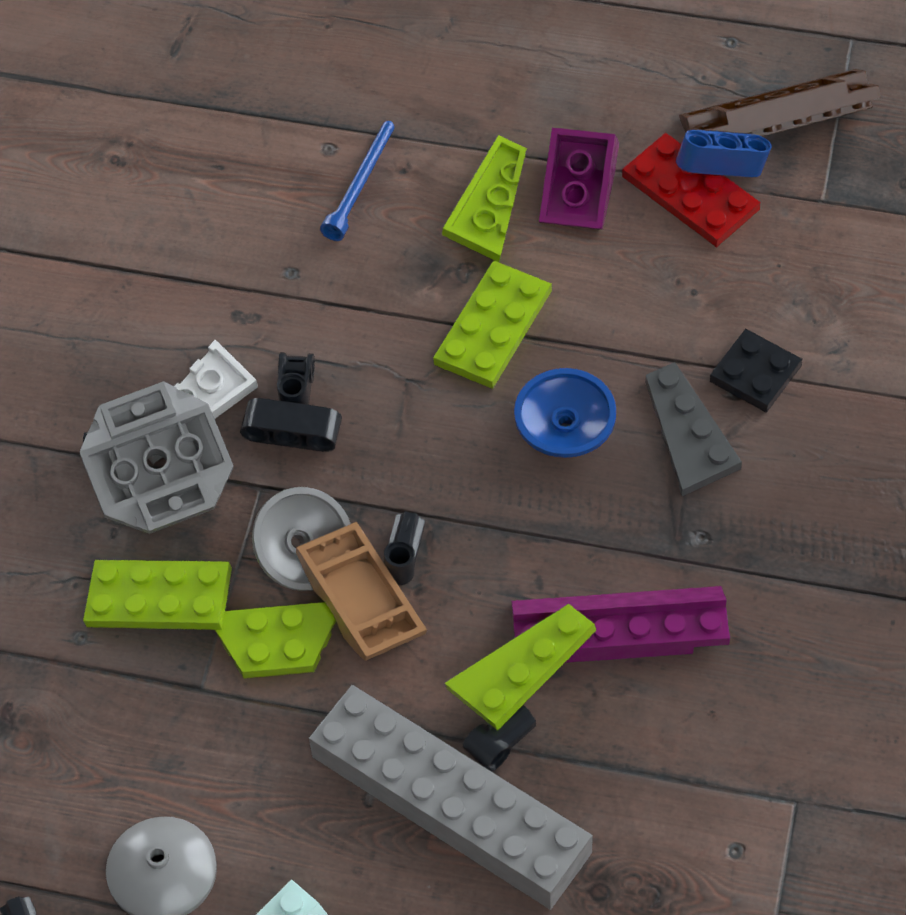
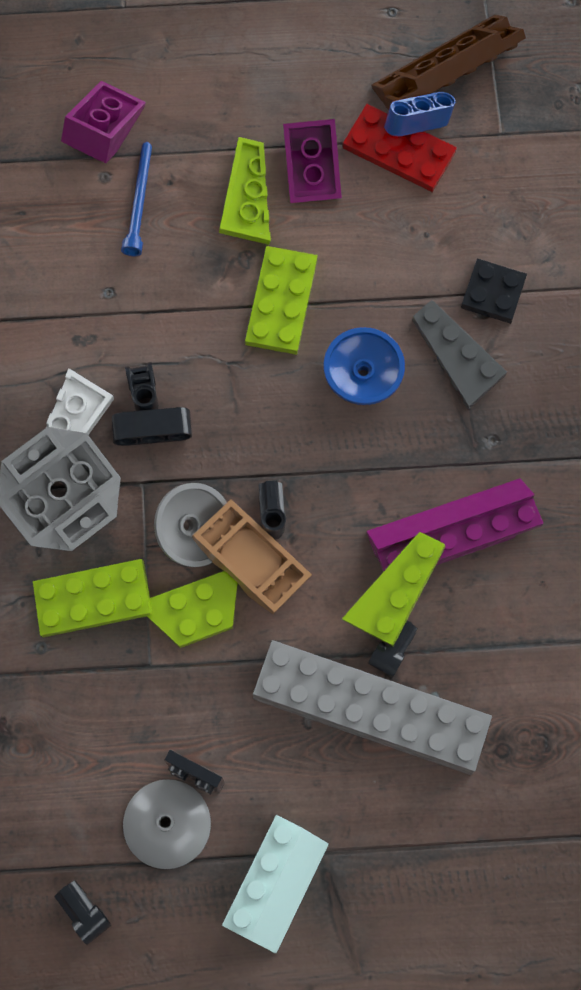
camera: 20 degrees left, 15 degrees up
(206, 805) = (204, 779): none -> black plate
(343, 87) = (101, 121): none -> magenta slope

